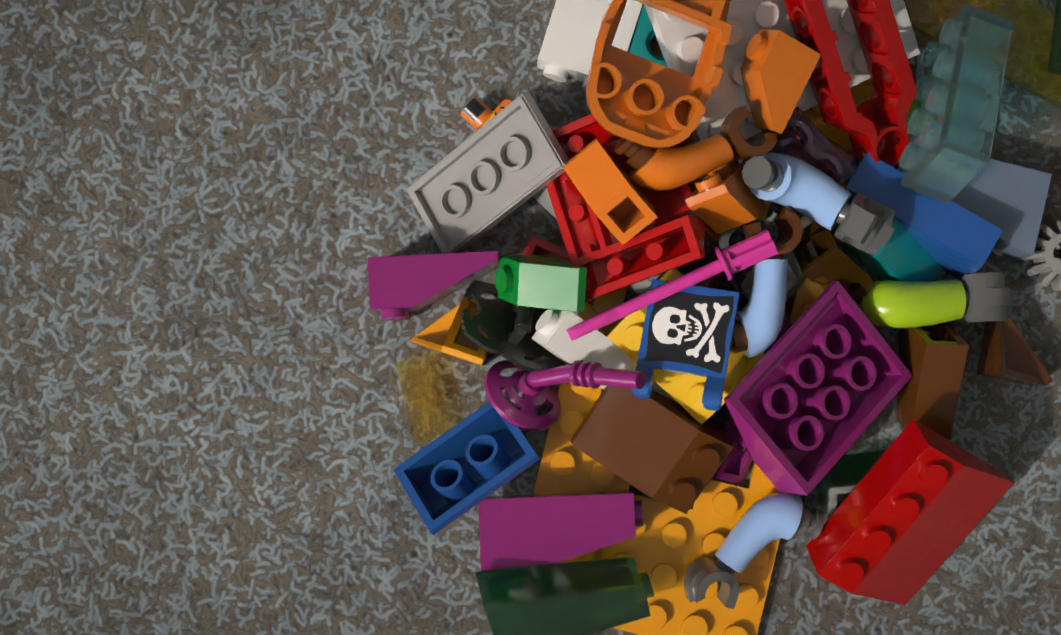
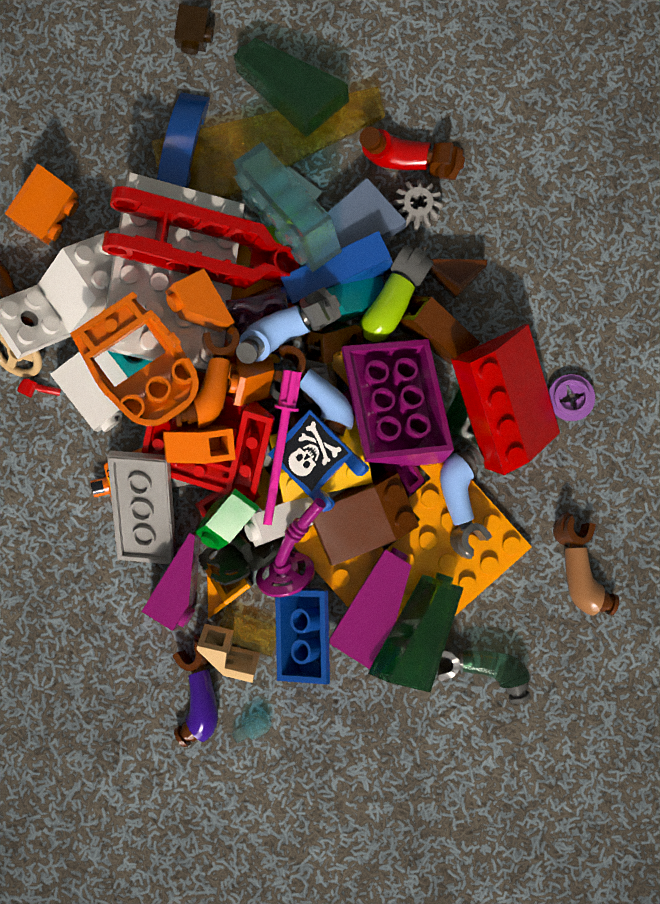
camera: 45 degrees left, 0 degrees up
(296, 410) = (203, 711): none -> dark purple piece
(320, 478) = (253, 726): none -> clear light blue cylinder
(378, 399) = (229, 660): none -> tan slope
(975, 586) = (582, 405): none -> medium lavender gear

